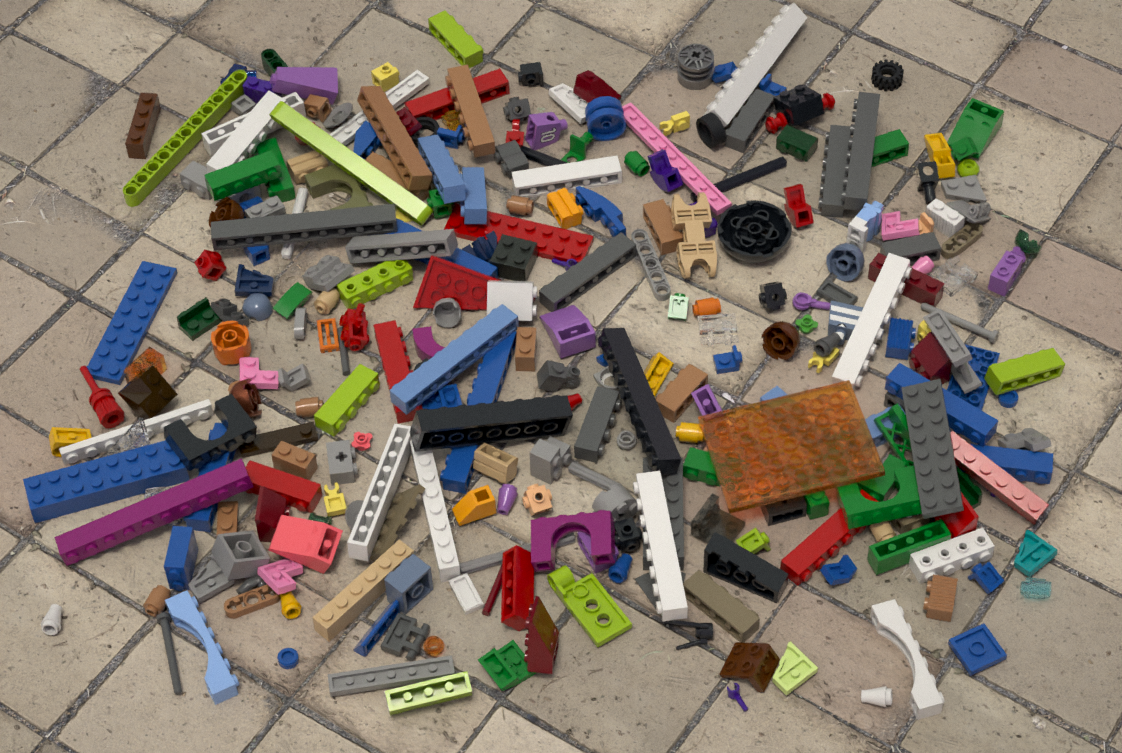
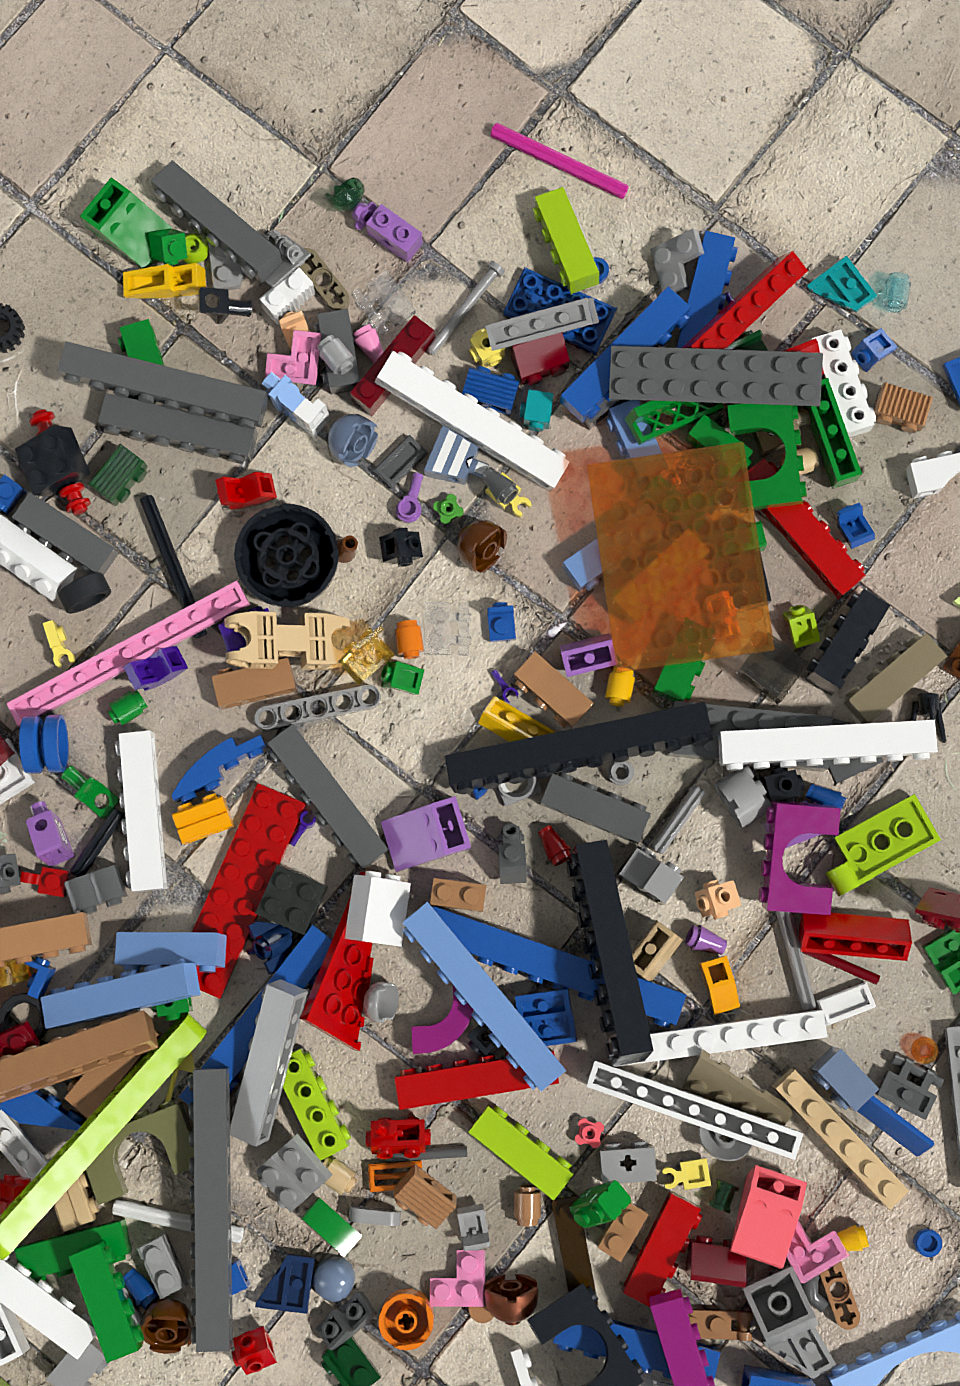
camera: 85 degrees left, 30 degrees up
(311, 438) = (600, 1204): none -> green brick
(314, 345) = (424, 1197): none -> medium nougat brick
(520, 205) = (189, 883): medium nougat brick -> none
(675, 367) = (504, 687): none -> dark purple hand
(691, 280) = (367, 656): none -> clear yellow bracket
(766, 265) = (347, 548): none -> reddish brown cone
(887, 364) = (537, 410): none -> teal brick
(903, 239) = (335, 355): none -> light grey brick
(987, 172) = (216, 221): none -> dark grey brick
(1088, 369) = (559, 160): none -> dark pink axle

